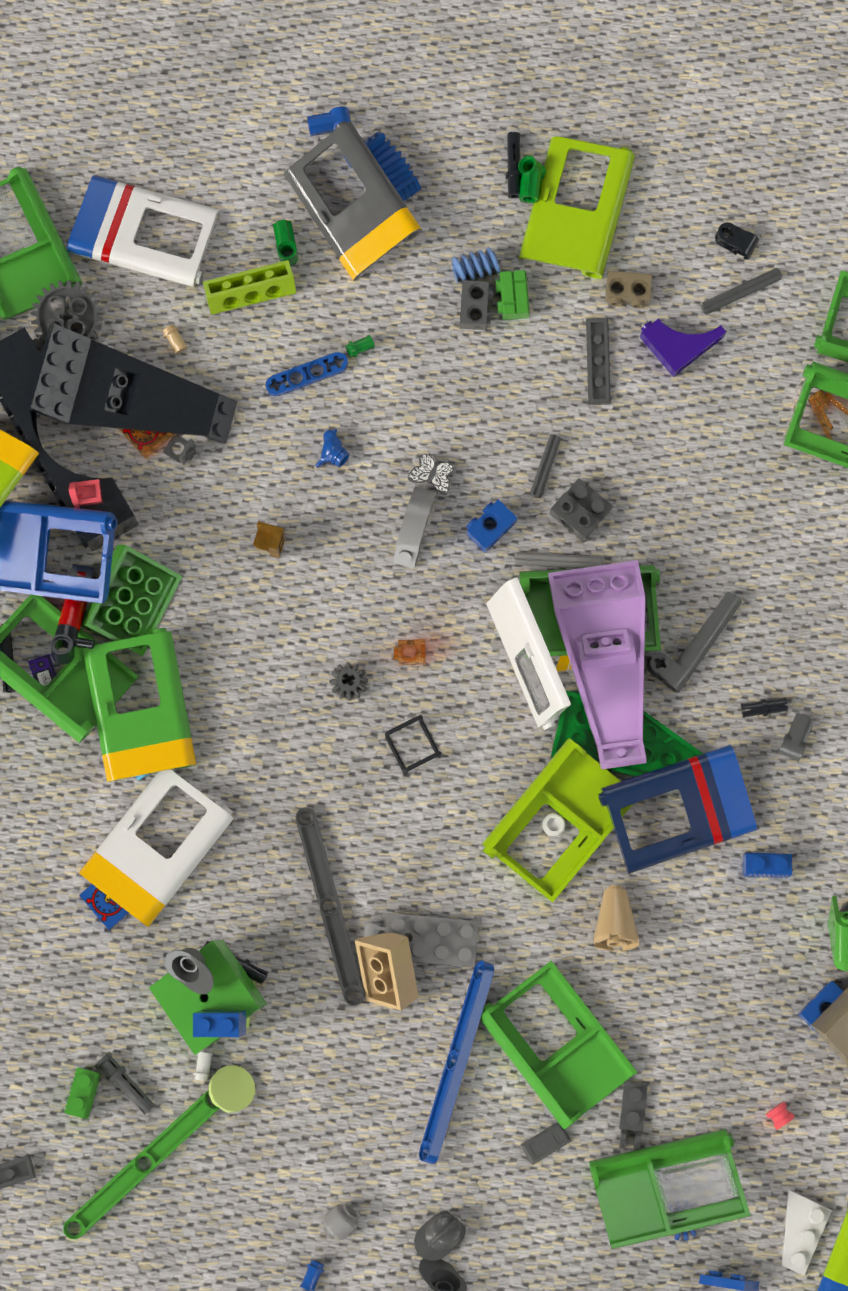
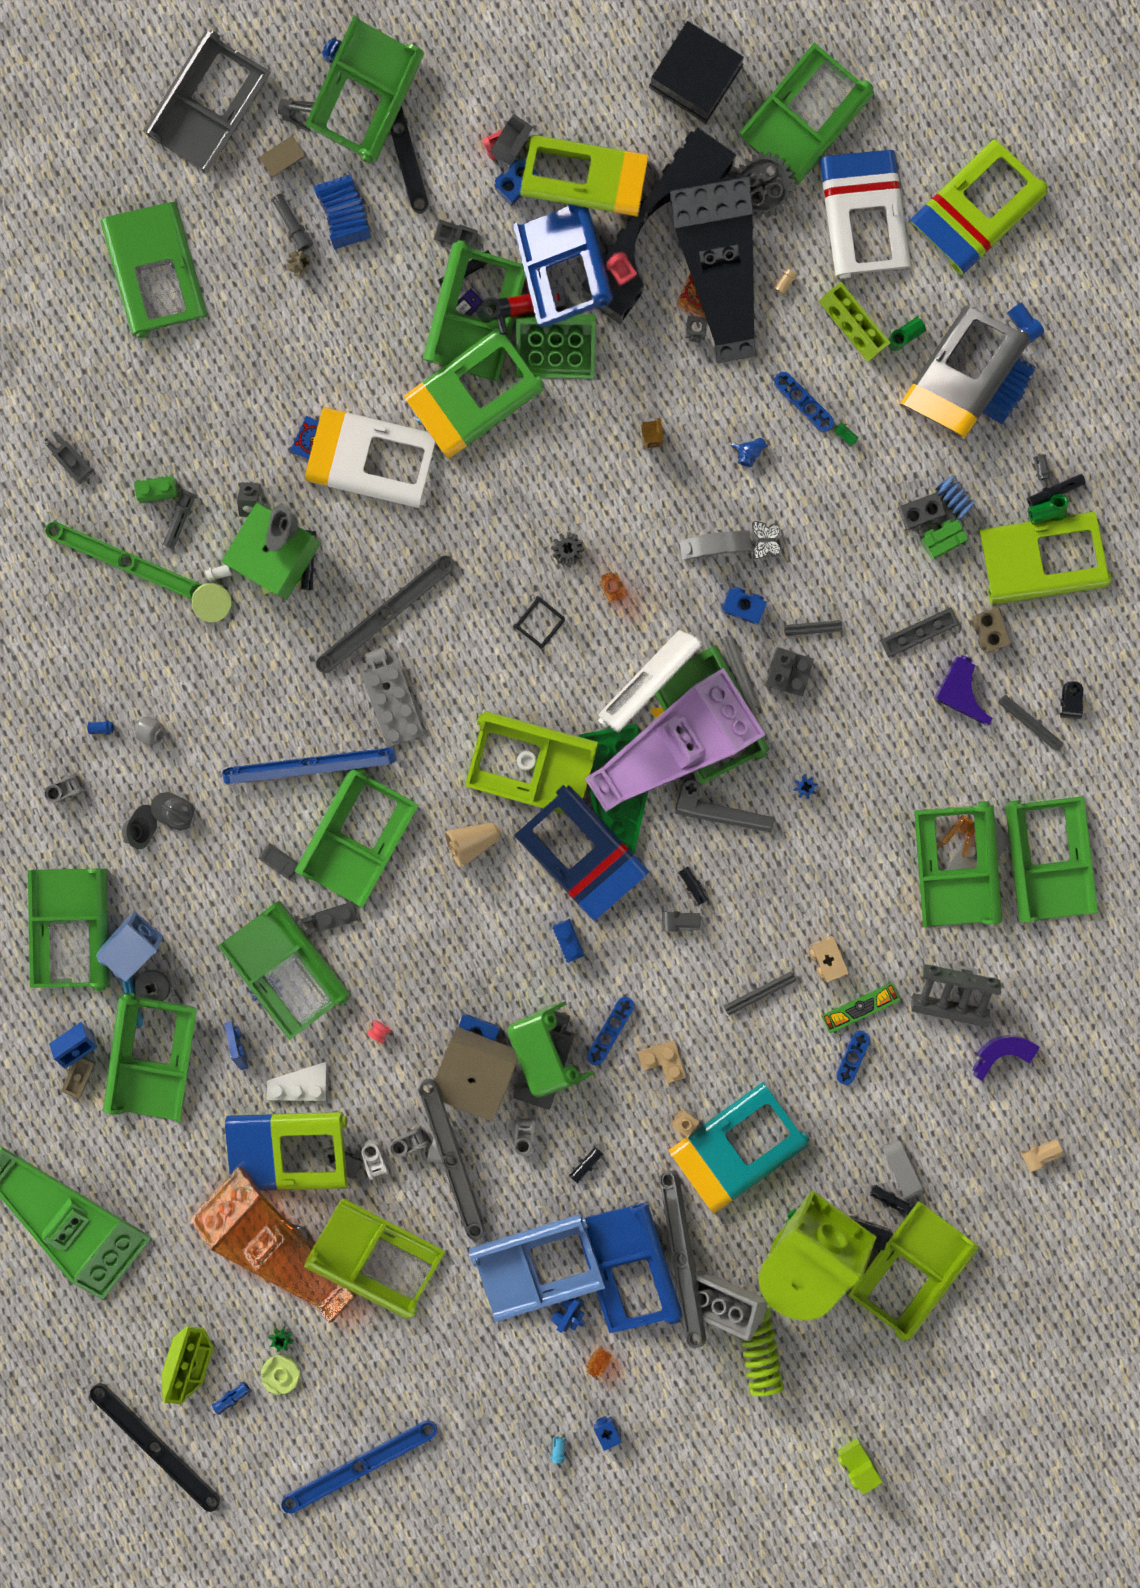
camera: 70 degrees right, 10 degrees up
(136, 997) = (247, 496): none -> dark grey bracket
(201, 143) = (960, 226): none -> lime piece
(219, 1023) = (250, 569): blue brick -> none
(387, 970) = (353, 681): tan slope -> none
(483, 168) = (1042, 467): none -> dark grey pin
(704, 548) = (810, 790): none -> blue gear

